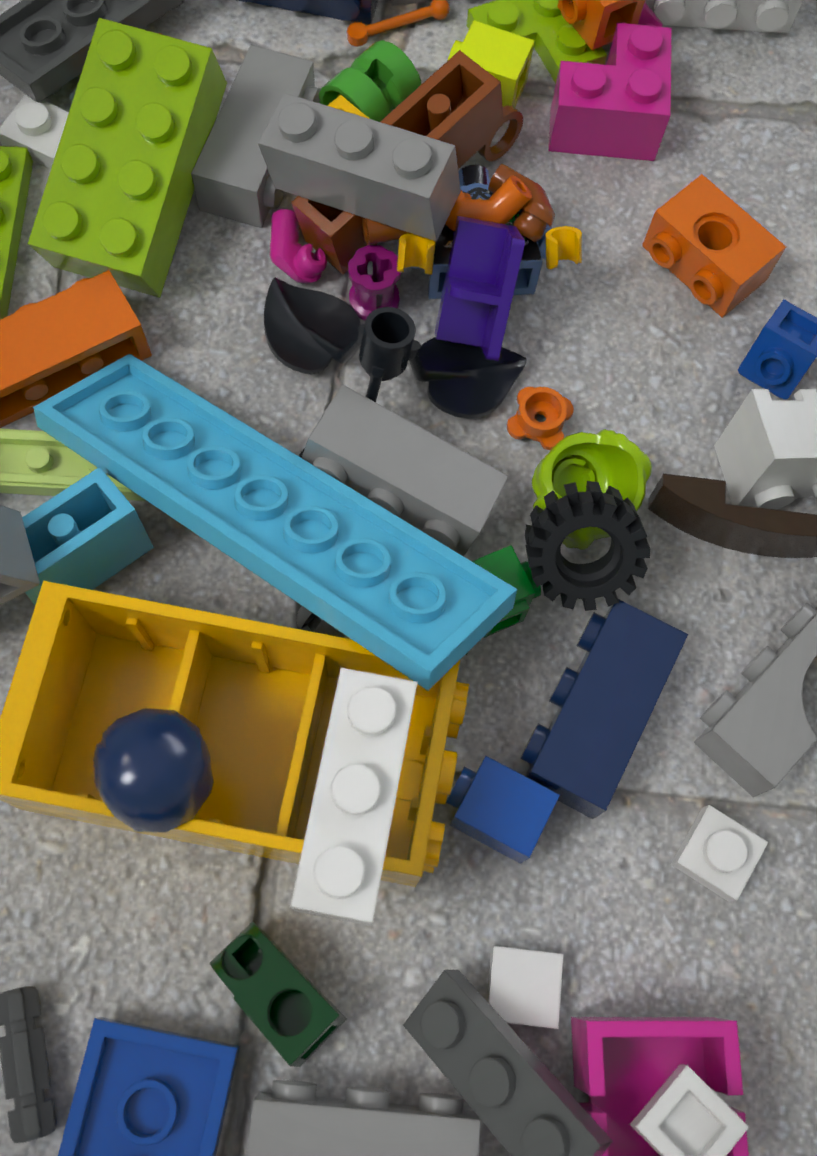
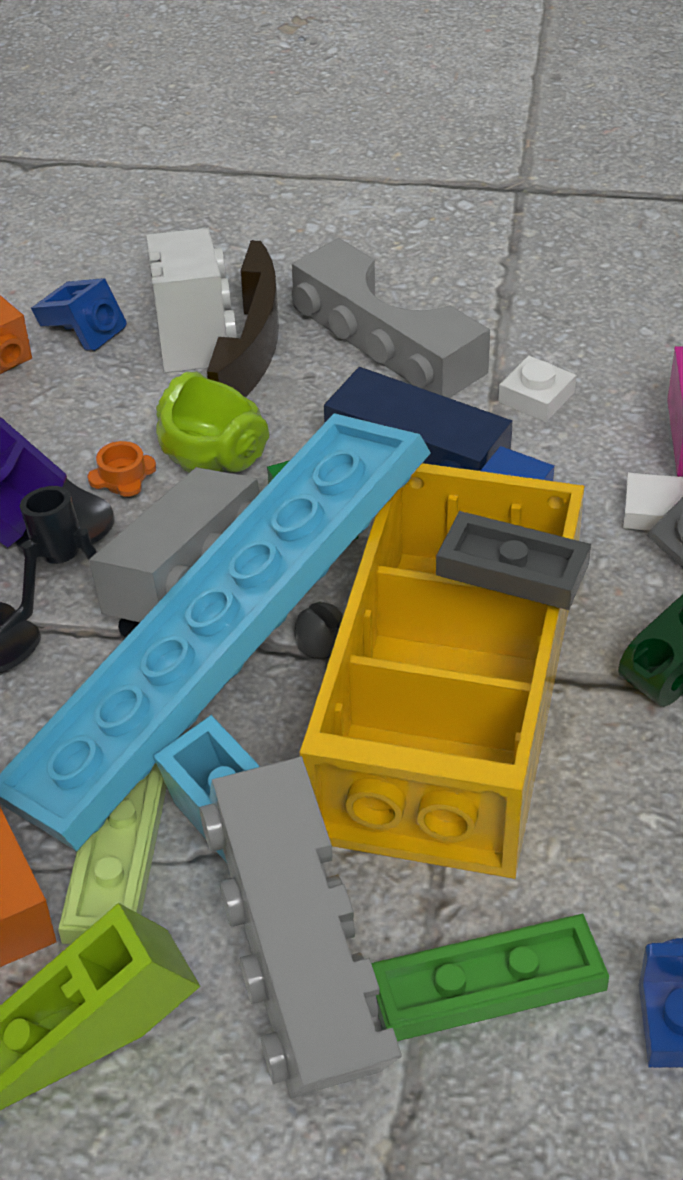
camera: 80 degrees left, 25 degrees down
(153, 770) = (501, 640): dark blue hair -> none
(265, 784) = (513, 560): none -> dark grey plate
(354, 797) = (529, 485): white brick -> none
(591, 579) = (276, 405): black tyre -> none

